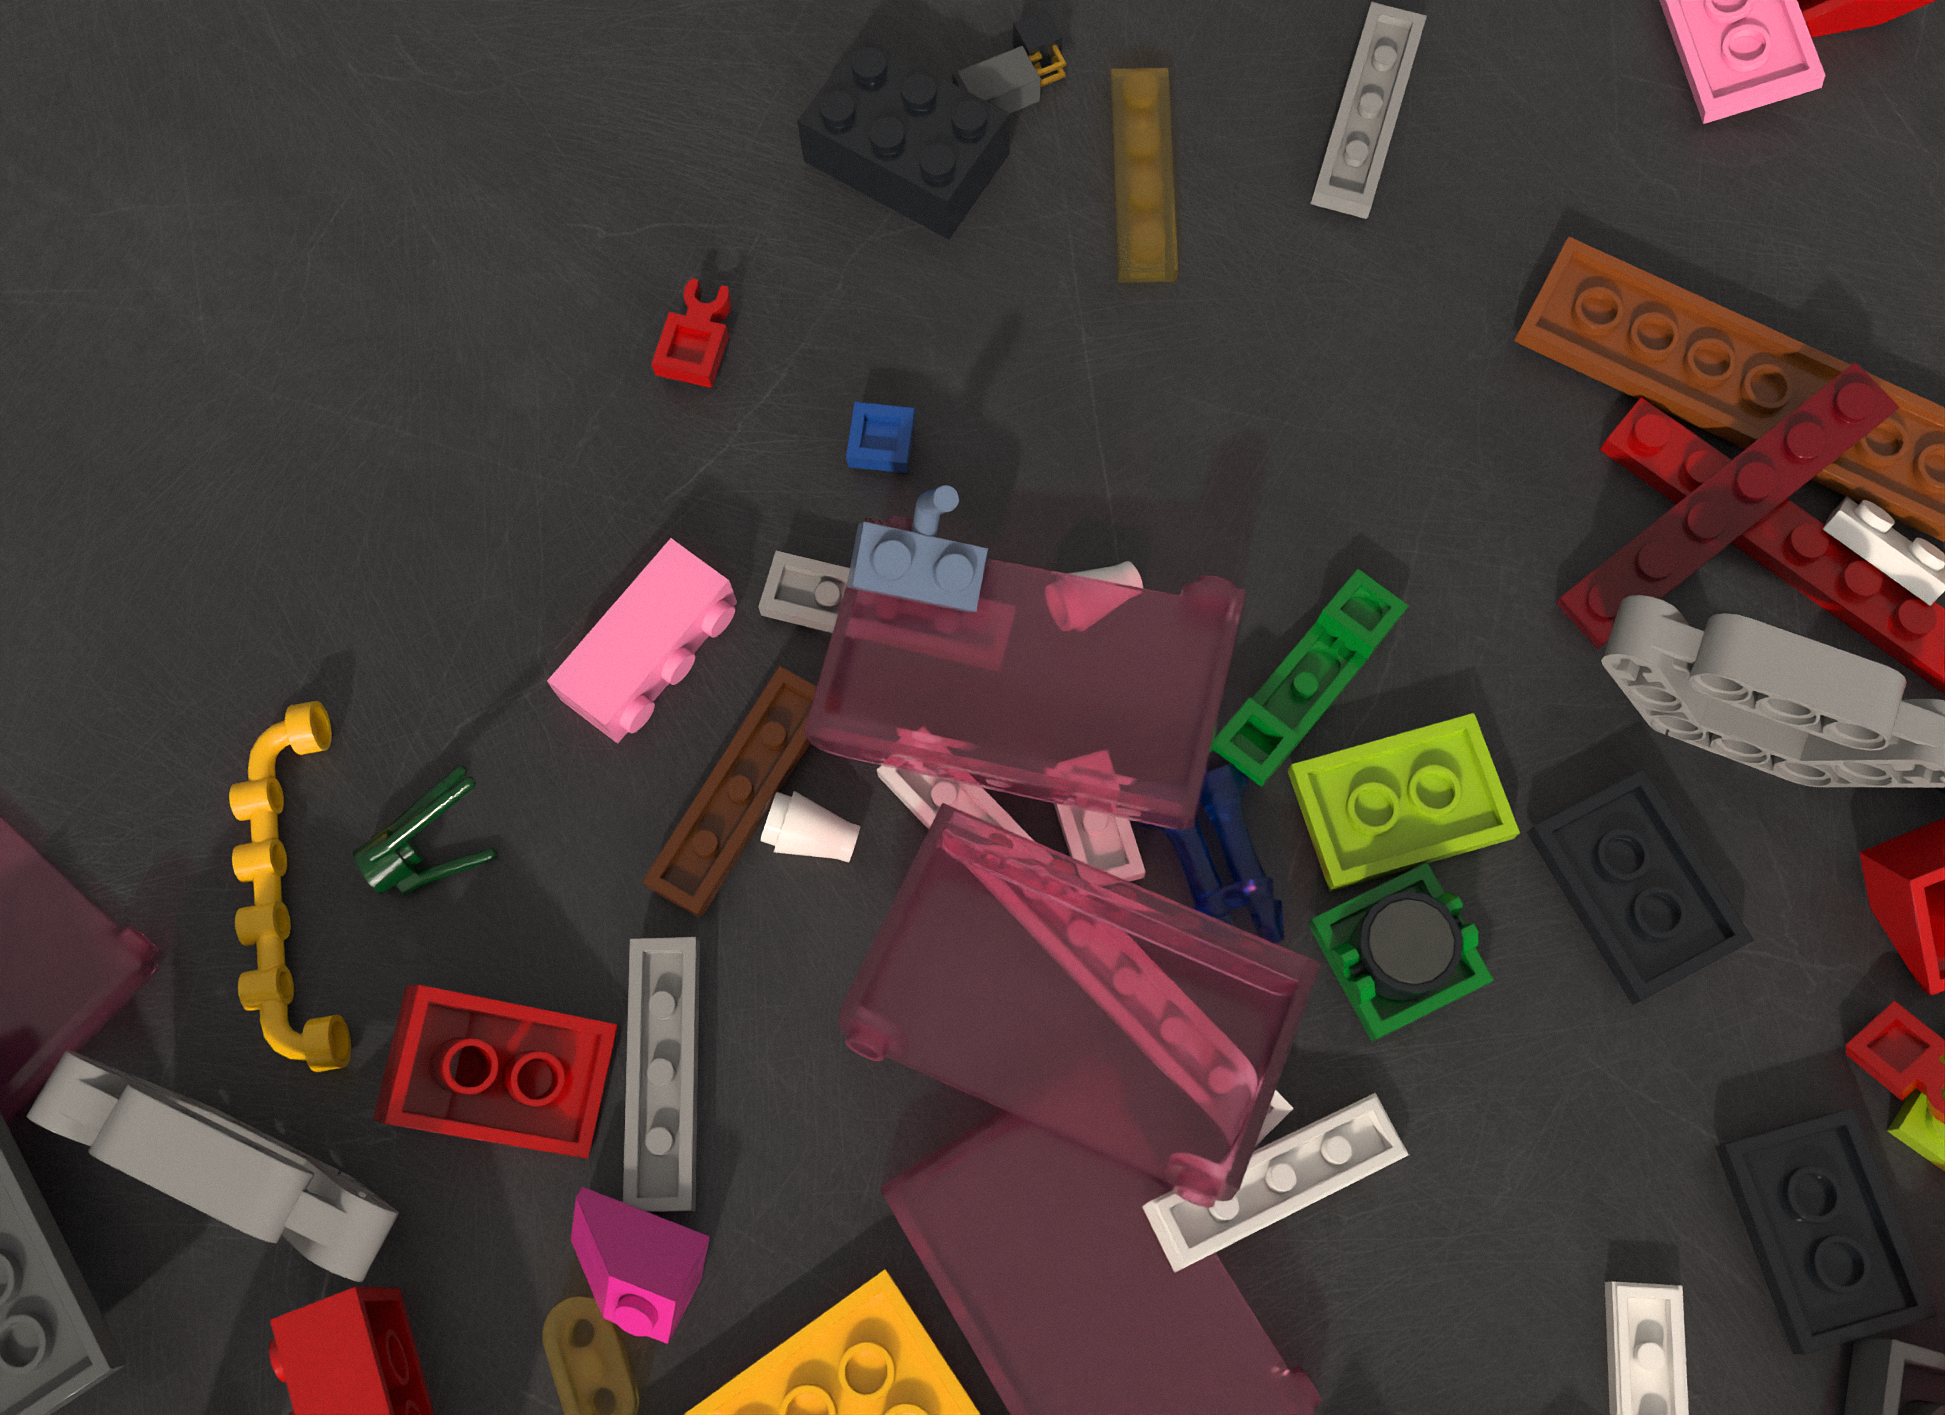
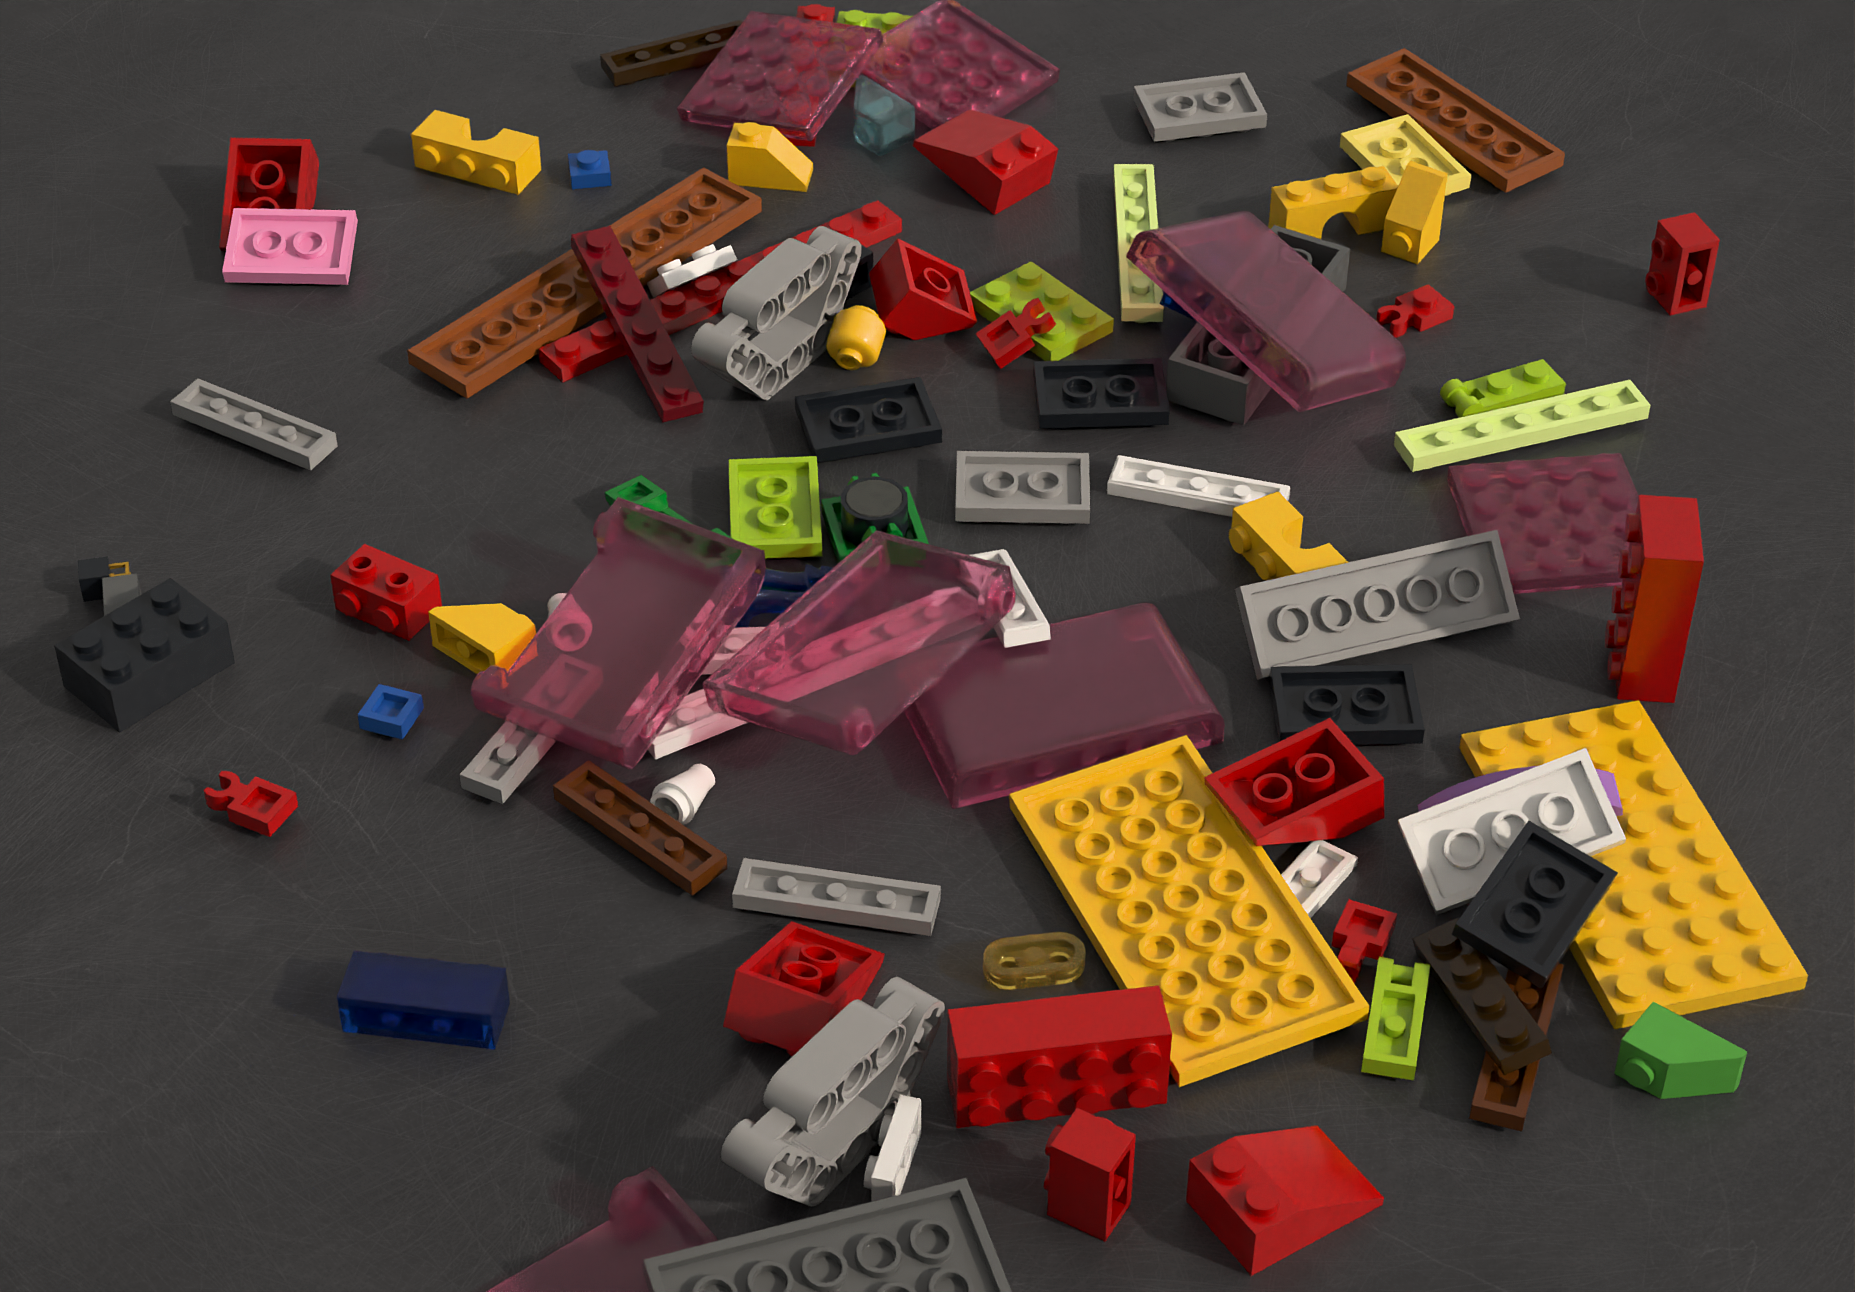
camera: 80 degrees left, 30 degrees down
(201, 1249) = (899, 1140): none -> white plate
(267, 924) = (692, 1119): yellow bar -> none
(393, 853) = (615, 1031): dark green plant -> none
(406, 625) = (423, 999): none -> clear blue brick
(637, 1264) = (968, 916): dark pink slope -> none
(645, 641) = (500, 860): bright pink brick -> none
(917, 562) = (521, 666): sand blue plate -> none
(1031, 509) = (481, 634): none -> yellow slope
(1087, 362) = (385, 591): none -> red brick
(1143, 175) = (239, 547): clear yellow plate -> none
(1557, 1152) = (1022, 487): none -> light grey plate
(1816, 823) = (856, 337): none -> yellow head

